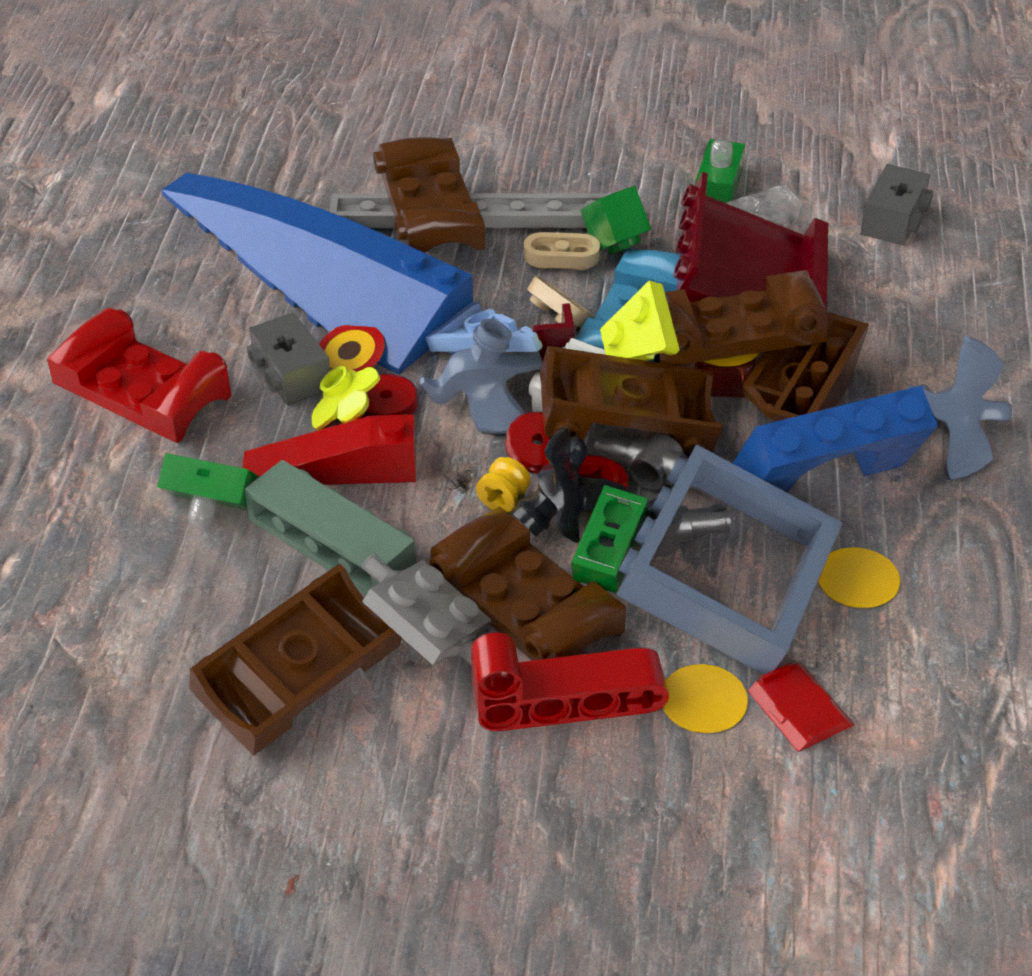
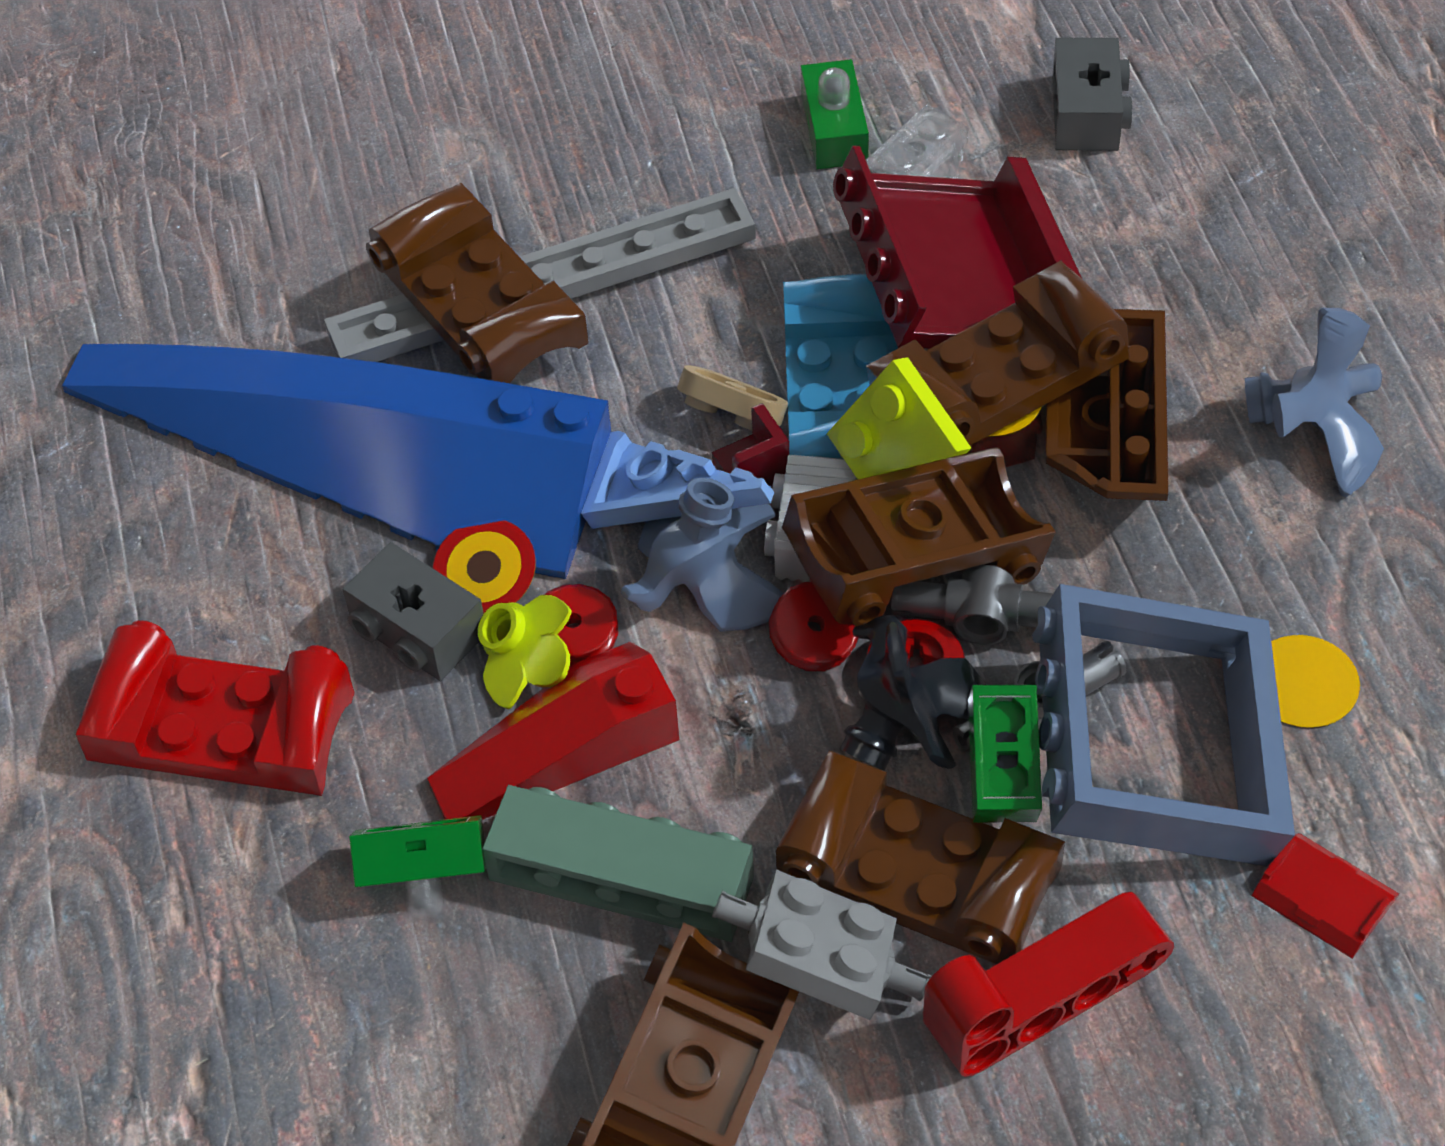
camera: 20 degrees left, 10 degrees up
(503, 484) = (808, 710): yellow wheel -> none
(561, 250) = (688, 308): tan plate -> none
(617, 220) = (753, 246): green brick -> none
(705, 698) = (1211, 924): yellow sticker -> none
(877, 429) = (1218, 510): blue arch -> none

